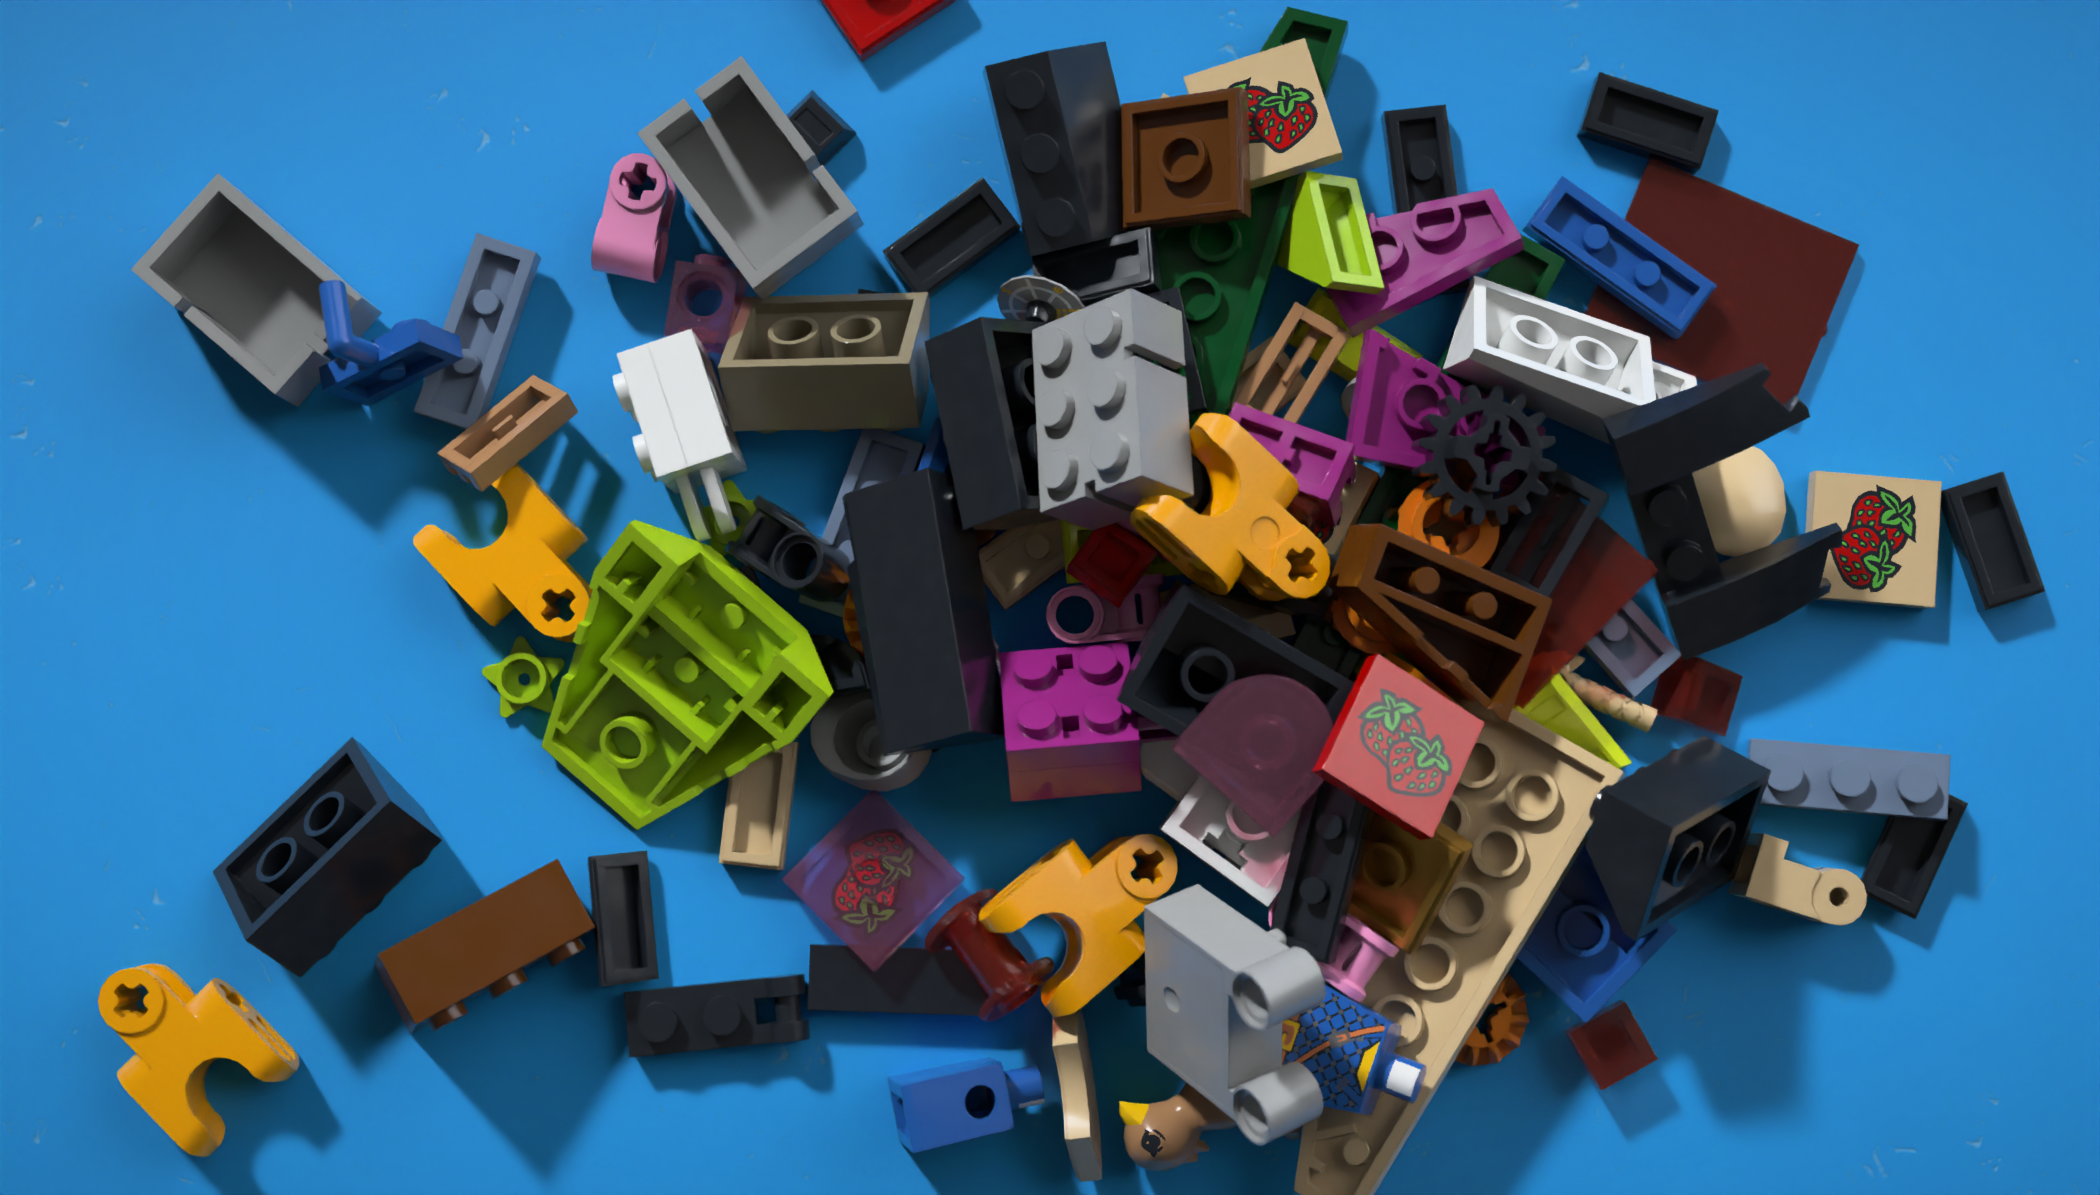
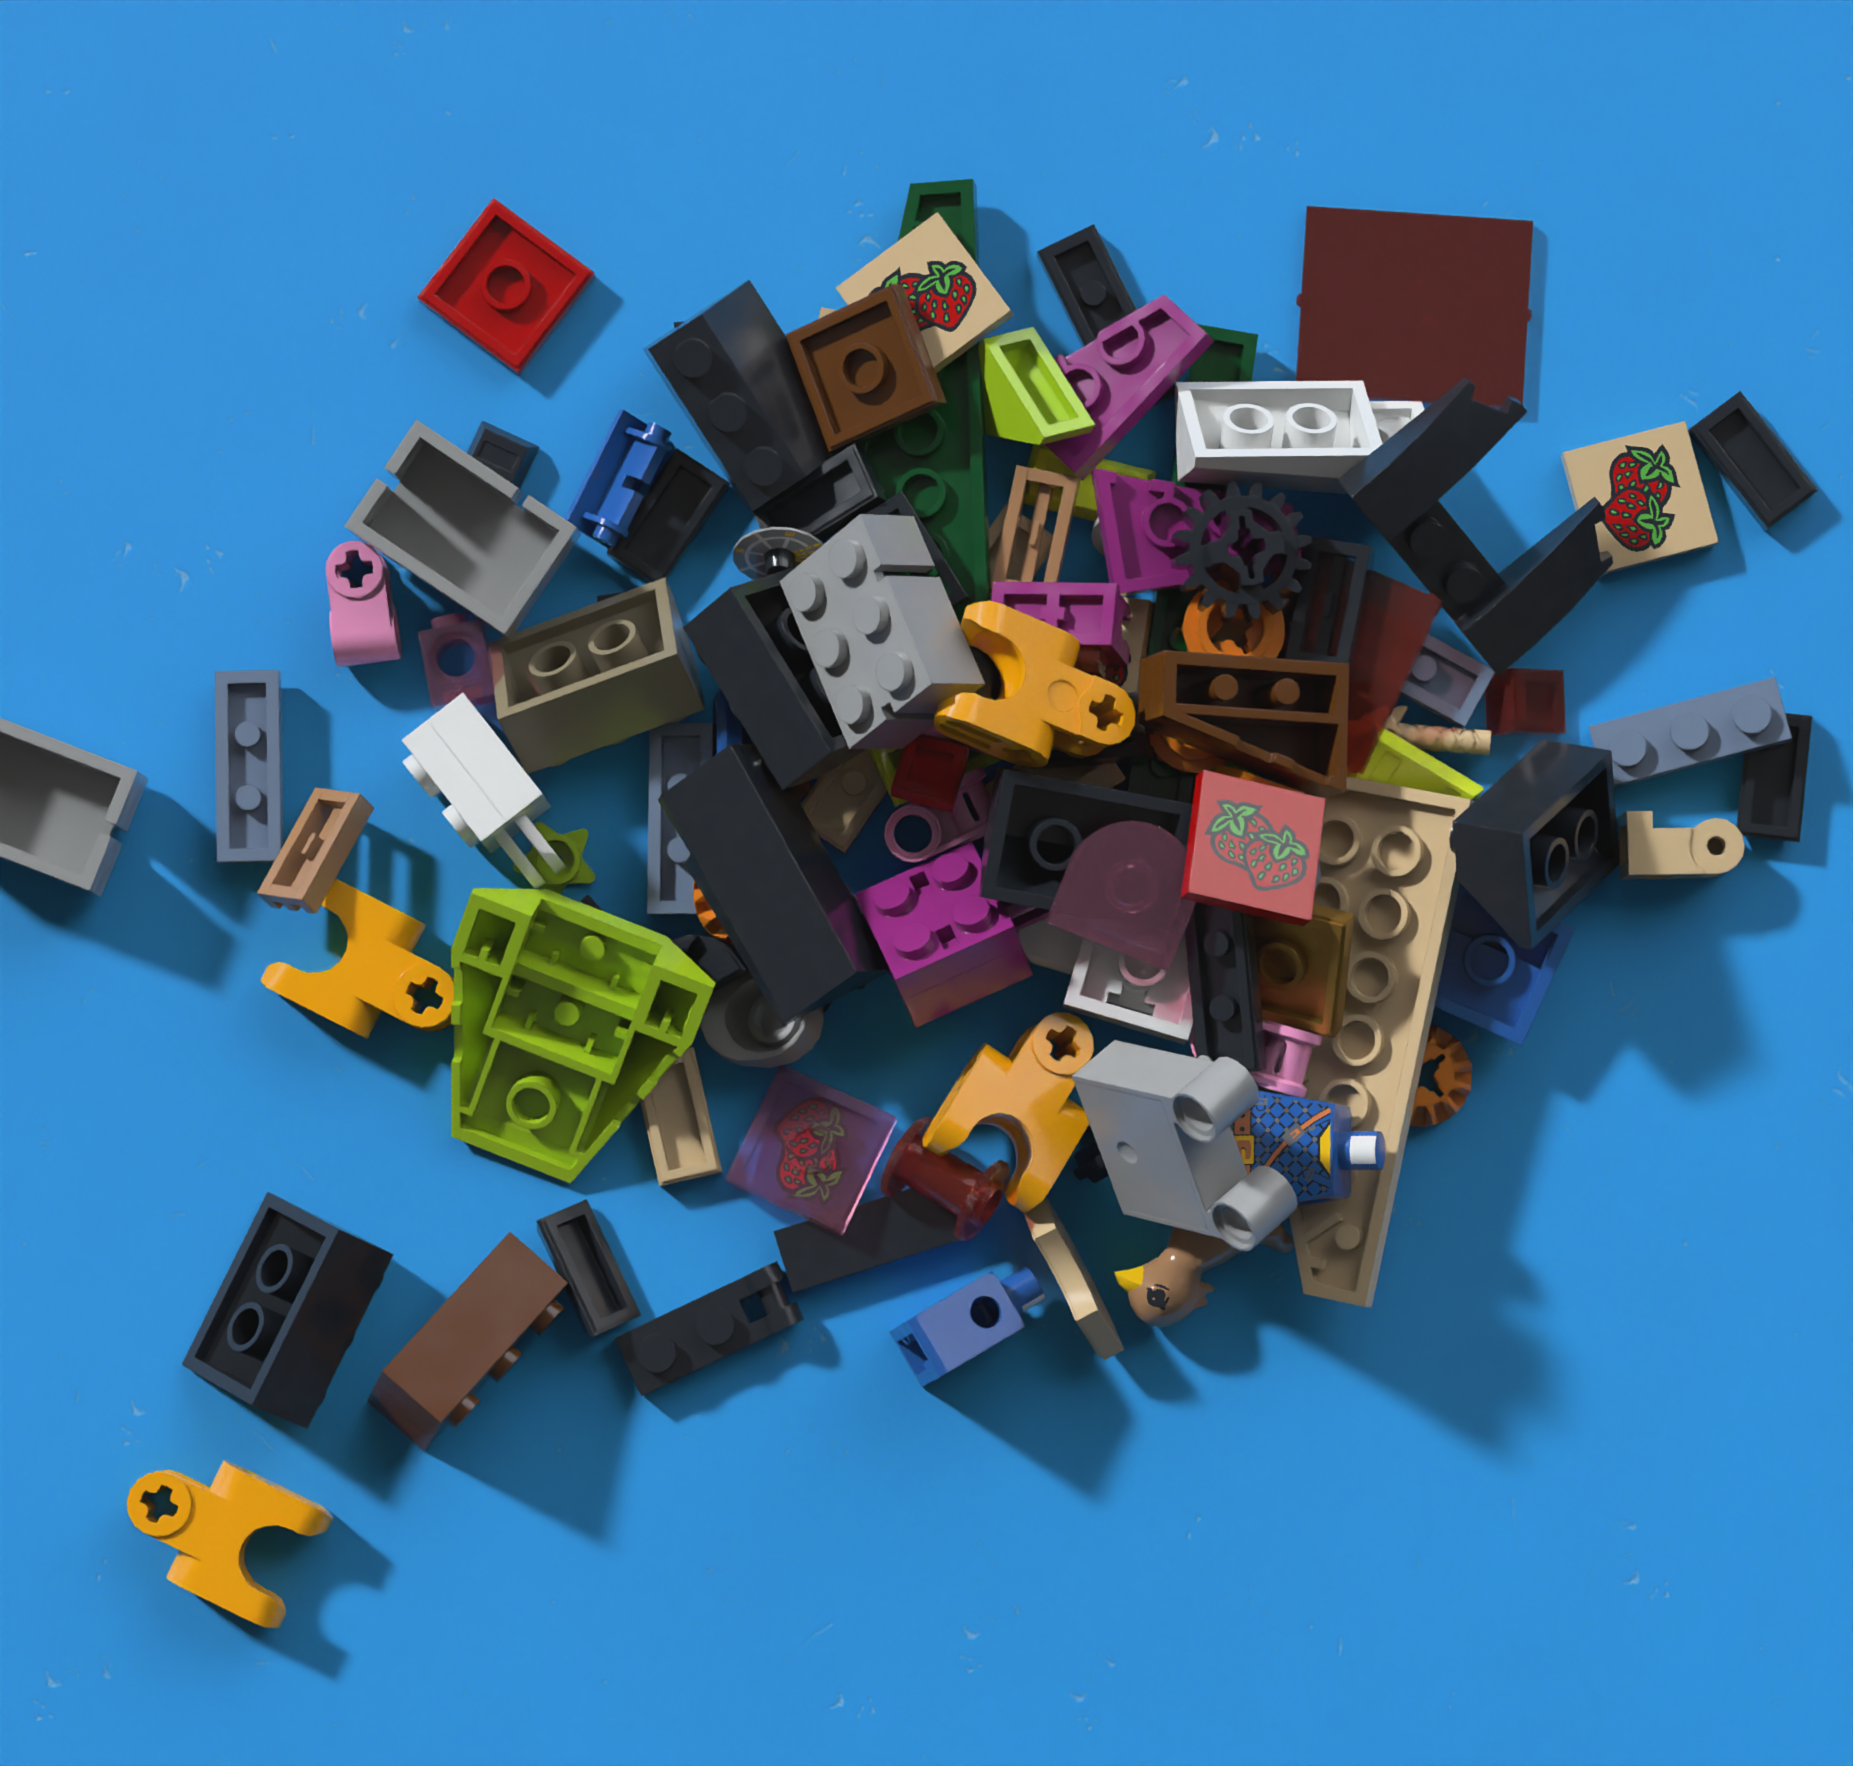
camera: 20 degrees left, 0 degrees up
(385, 365) = (170, 832): blue plate -> none
(506, 677) = (393, 1084): lime plate -> none
(783, 549) = (616, 868): black piece -> none
(916, 185) = (615, 478): none -> blue hinge
(1611, 1045) = (1555, 1059): clear red plate -> none
(1619, 258) = (1309, 314): blue tile -> none
(1647, 122) = (1292, 173): black tile -> none
(1742, 501) = (1500, 506): tan hat -> none

